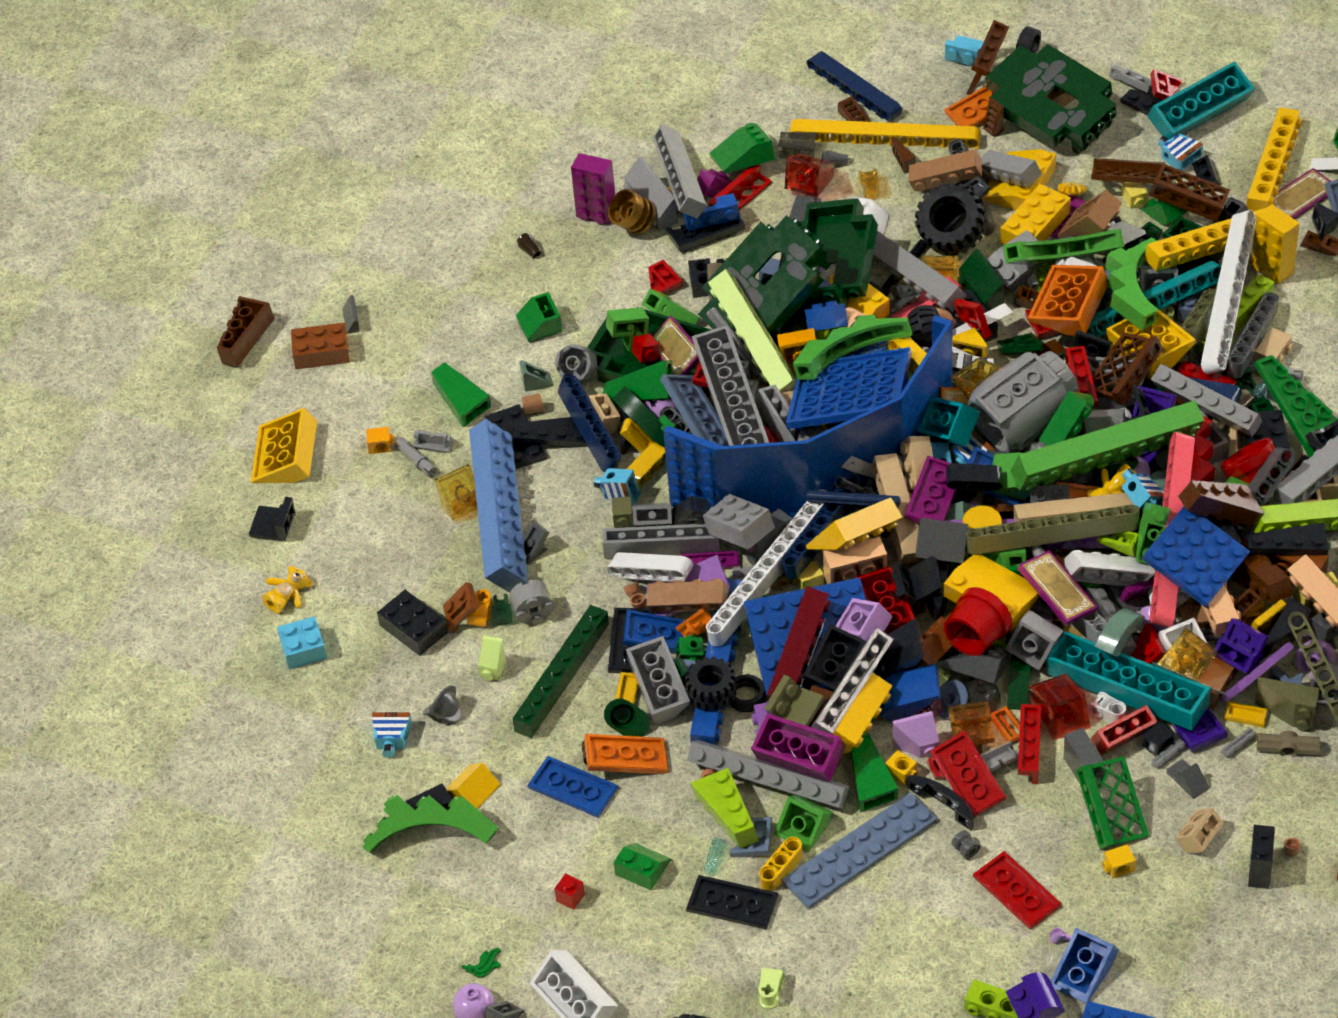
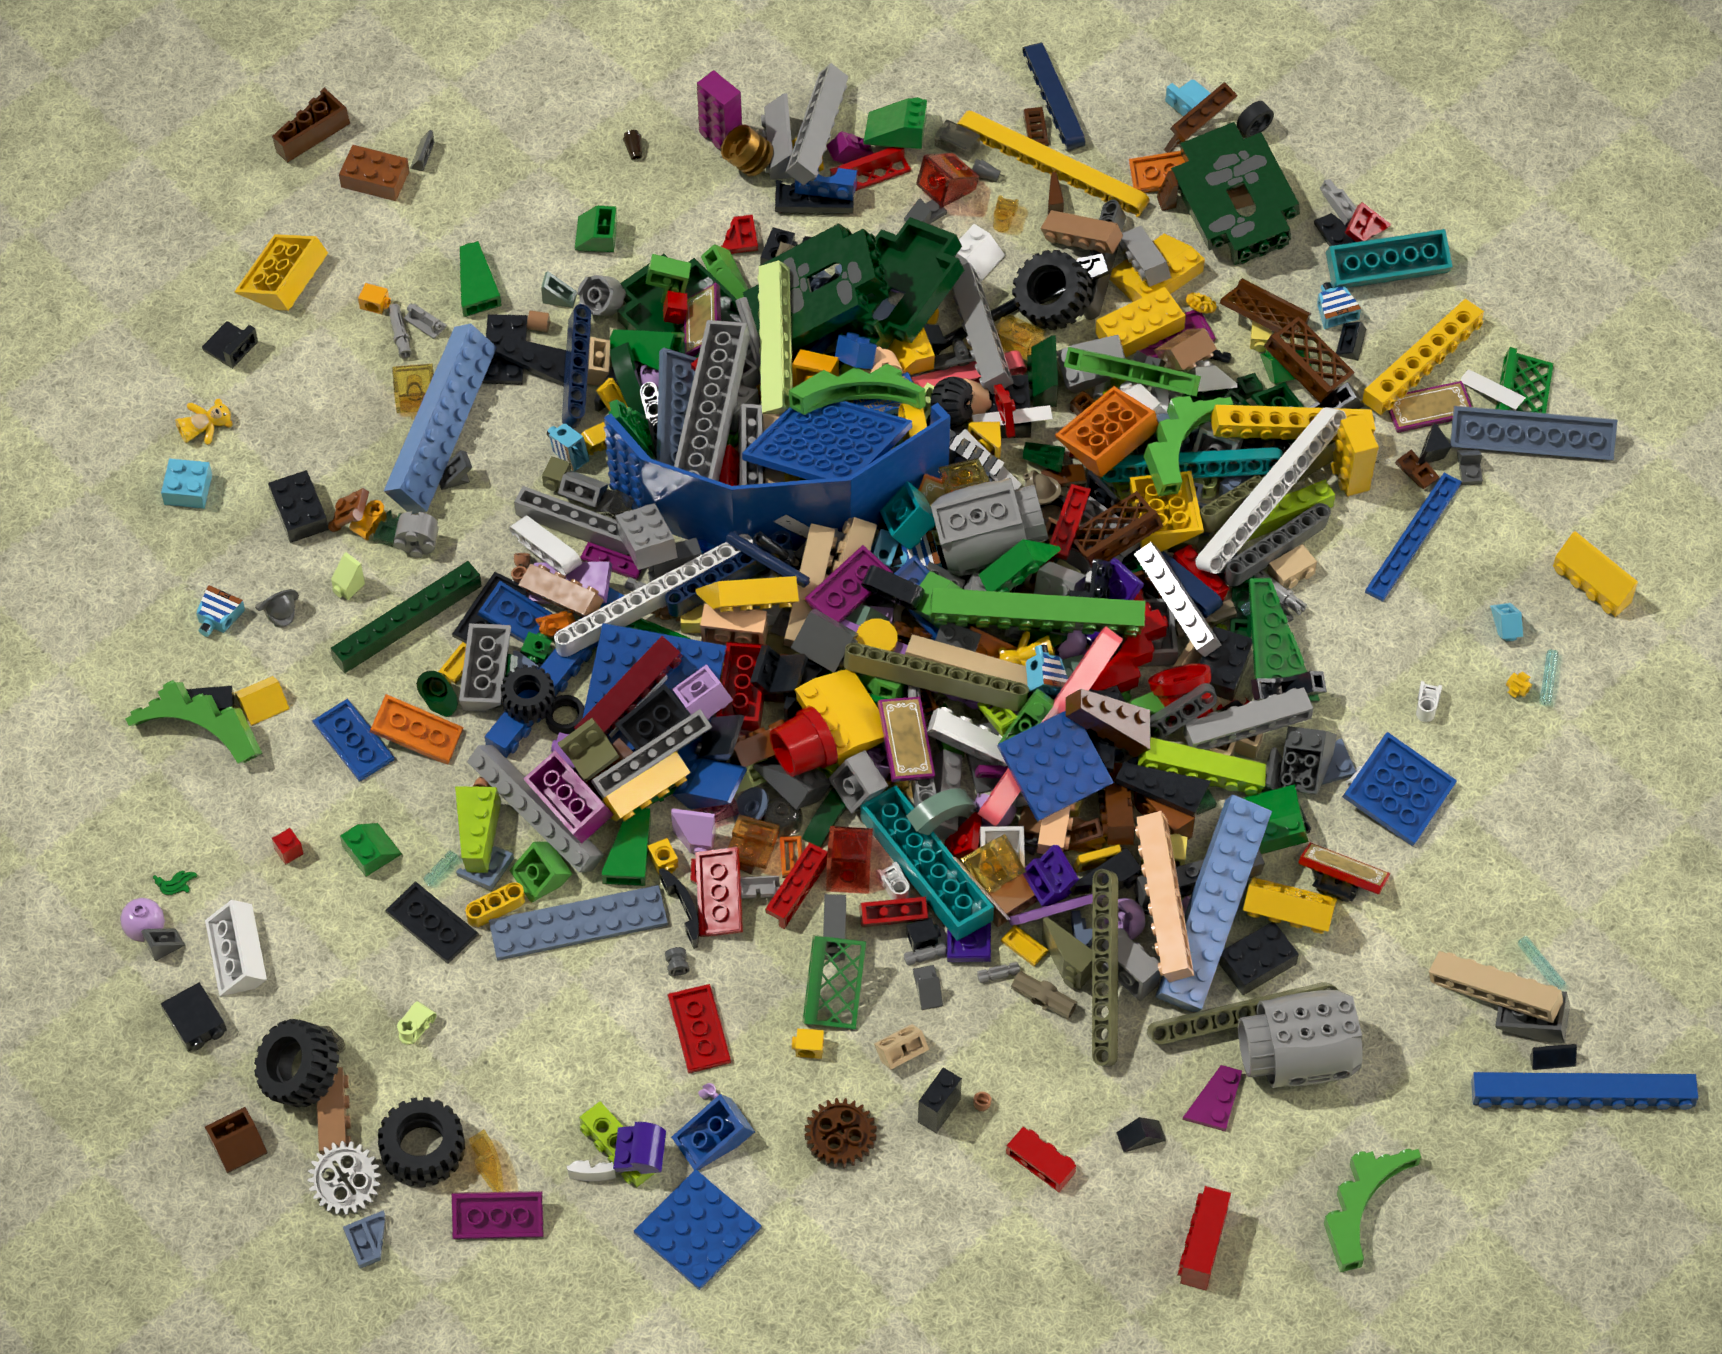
camera: 20 degrees right, 10 degrees up
(1205, 930) = (848, 1149): none -> reddish brown gear

